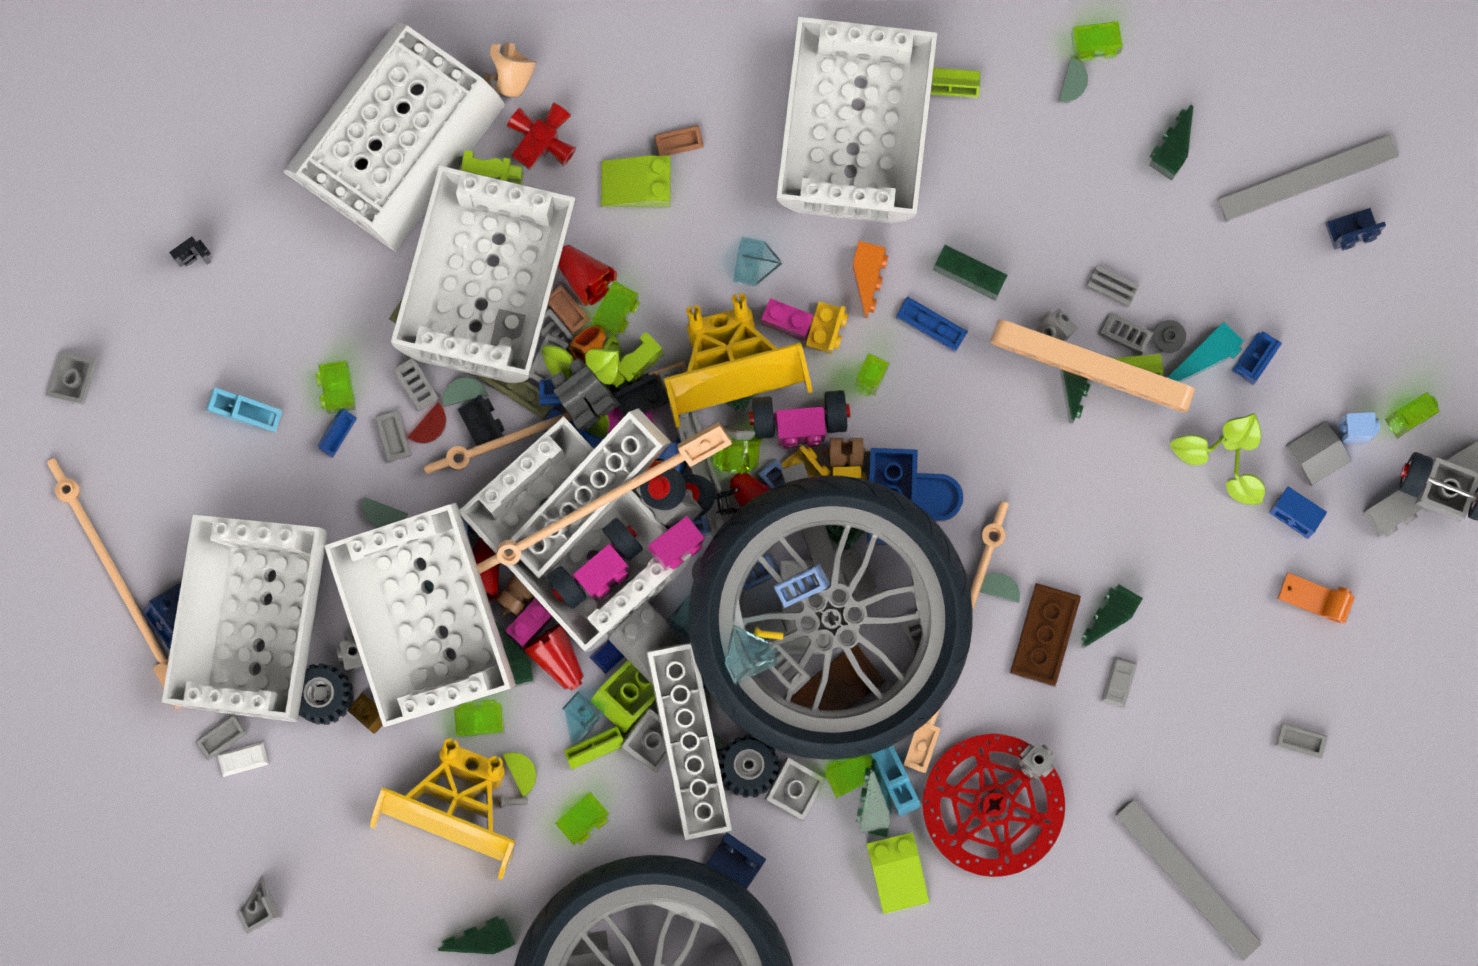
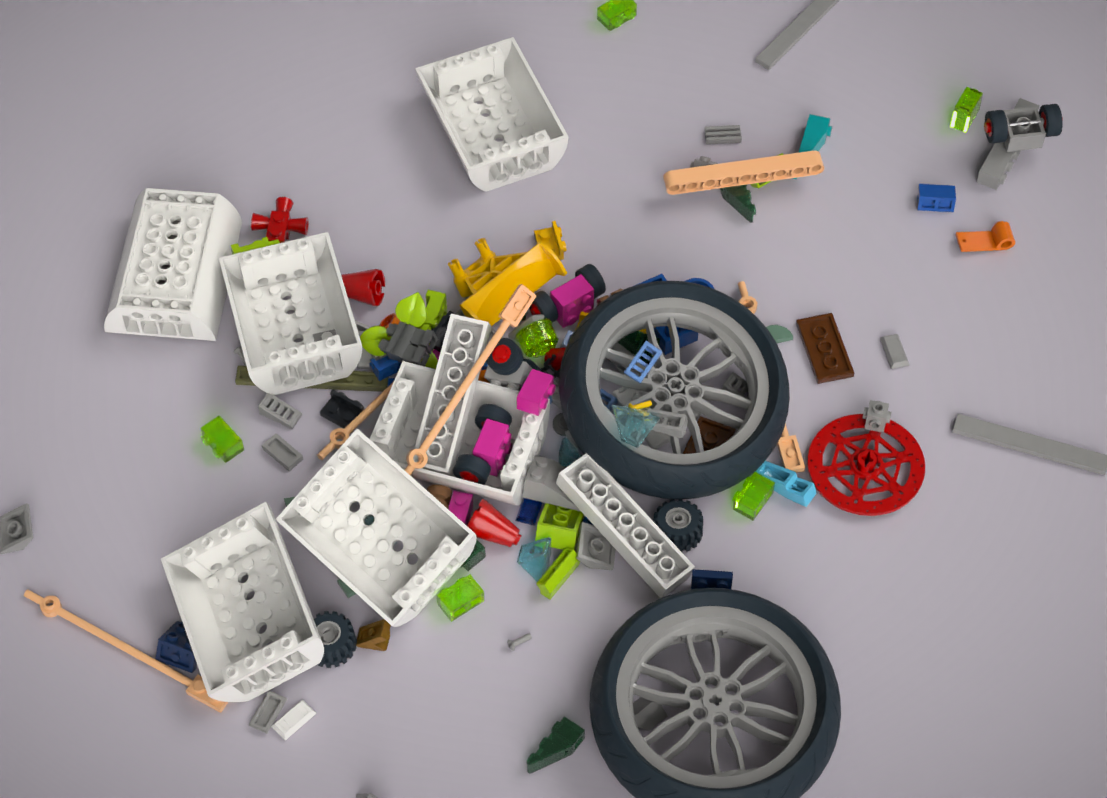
camera: 30 degrees left, 25 degrees down
(187, 251) = (61, 402): black bracket -> none
(243, 410) = (158, 487): medium azure slope -> none
(336, 432) = (238, 467): blue tile -> none
(345, 654) = (339, 599): light grey brick -> none
(430, 427) = (306, 433): clear red tile -> none
(463, 390) = (316, 400): sand green tile -> none
(487, 776) = (479, 668): yellow piece -> none
(512, 71) = (238, 193): light nougat piece -> none
(522, 771) = (513, 616): lime tile -> none
(567, 309) = (365, 316): nougat tile -> none
(583, 819) = (579, 623): clear neon green brick -> none
(616, 308) = (394, 291): clear neon green brick -> none
(636, 182) = (364, 220): lime slope -> none
(678, 141) = (377, 187): nougat tile -> none
(754, 262) = (475, 228): clear light blue slope -> none
(787, 319) = (518, 243): dark pink brick -> none
(795, 789) = (720, 526): light grey slope -> none
(866, 270) = (554, 199): orange slope -> none
(871, 375) = (600, 248): clear neon green brick -> none
(877, 805) = (787, 503): clear green slope -> none
(897, 873) = (829, 539): lime slope -> none
(931, 324) = (619, 210): blue tile -> none
(955, 82) = (546, 70): lime piece -> none
(970, 272) = (625, 166): clear green brick -> none
(1075, 82) = (618, 40): sand green tile -> none
(1118, 610) = (862, 310): clear green slope -> none
(1139, 349) = (762, 150): light grey slope -> none
(1169, 336) = (780, 143): dark grey piece -> none
(1174, 151) = (708, 42): clear green slope -> none
(1238, 434) = (868, 153): lime plant -> none
(1256, 357) = (844, 128): blue hinge -> none
(1301, 740) = (1040, 324): light grey tile -> none
(1319, 453) = (924, 161): light grey slope -> none
(1354, 228) = (853, 33): dark blue bracket -> none
(1358, 427) = (938, 130): light blue brick -> none

